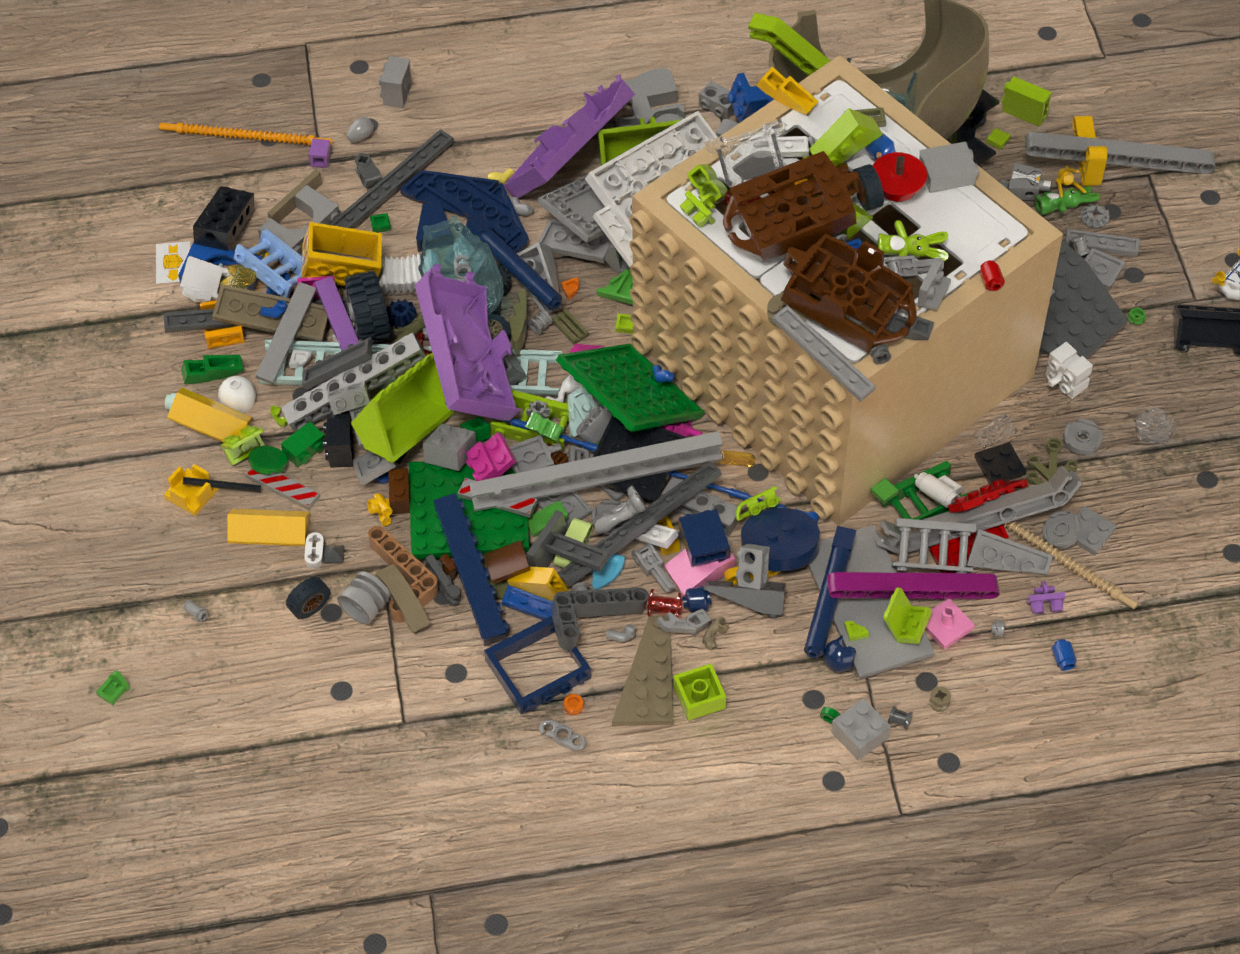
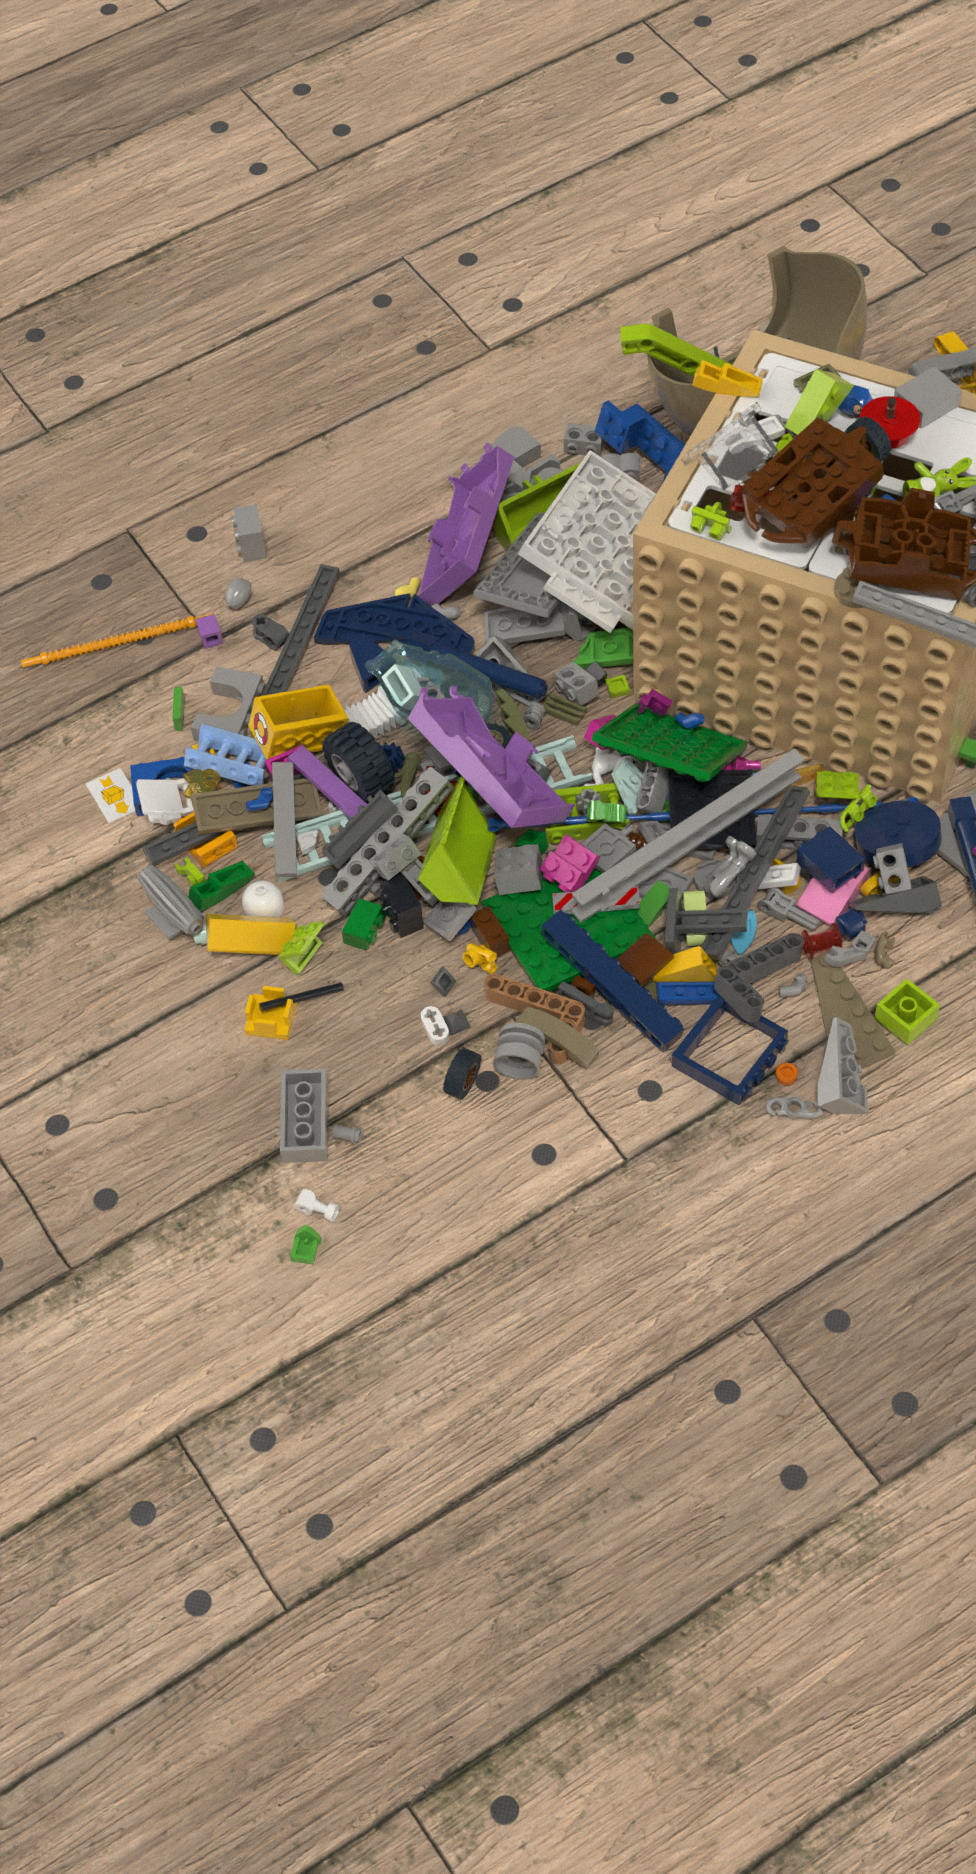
camera: 20 degrees left, 0 degrees up
(134, 655) = (308, 1203): none -> white leg
(161, 373) = (172, 907): none -> light grey plate
(168, 582) = (304, 1115): none -> light grey brick
(193, 354) = (194, 874): none -> lime plate
(223, 218) = (149, 730): black brick -> none
(260, 209) = (178, 708): none -> bright green tile
(267, 460) = (335, 954): green tile -> none
(267, 527) = (373, 1021): yellow slope -> none
(275, 413) = (312, 905): lime piece -> none
(285, 487) = (363, 973): light grey tile -> none
(288, 203) = (205, 691): dark tan tile -> none
(340, 516) = (443, 981): none -> dark grey slope
(380, 223) = (310, 678): green tile -> none
(441, 252) = (402, 686): none -> light aqua brick
(570, 287) = (542, 670): orange tile -> none
(588, 308) = (576, 684): none -> light grey brick
(609, 307) = (597, 672): none -> slope
(611, 726) = (839, 1078): none -> light grey wedge
(640, 348) = (655, 701): none -> magenta bracket
(705, 179) = (699, 491): lime brick -> none
(752, 477) = (837, 785): none -> lime bracket
(1026, 101) = (886, 338): lime brick -> none

